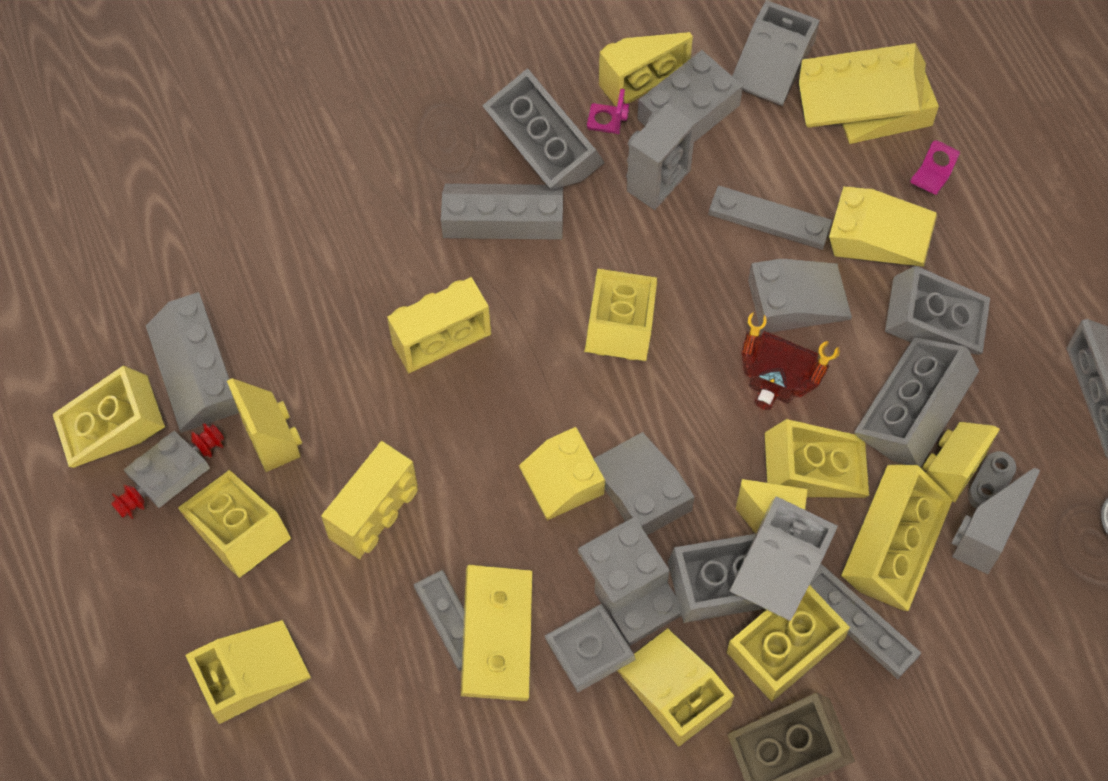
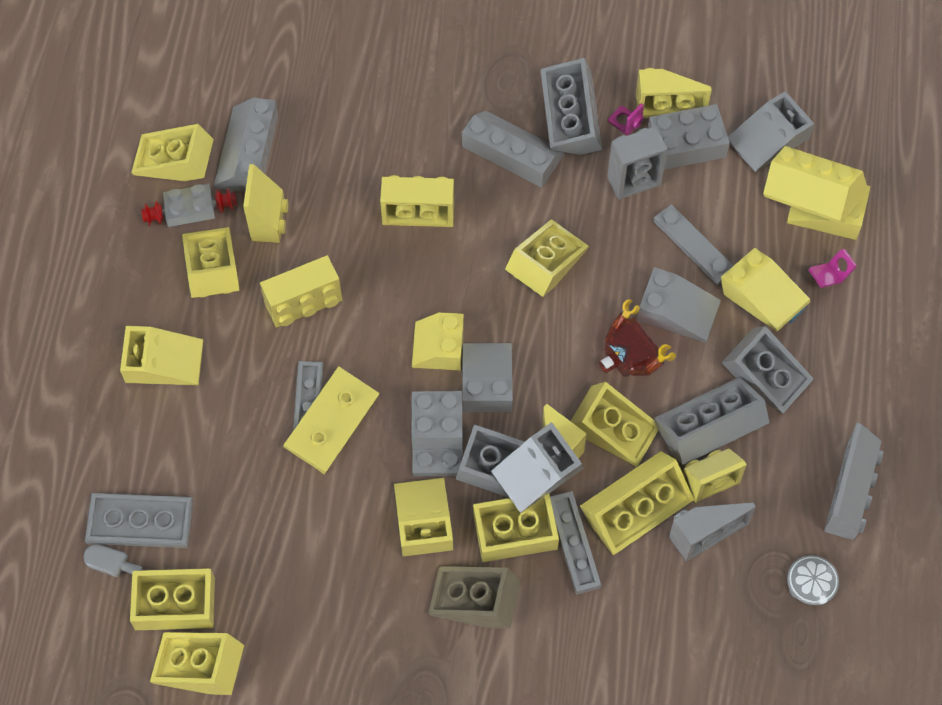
camera: 30 degrees right, 0 degrees up
(590, 648) = (385, 462): light grey plate -> none
(991, 477) = (730, 495): light grey plate -> none

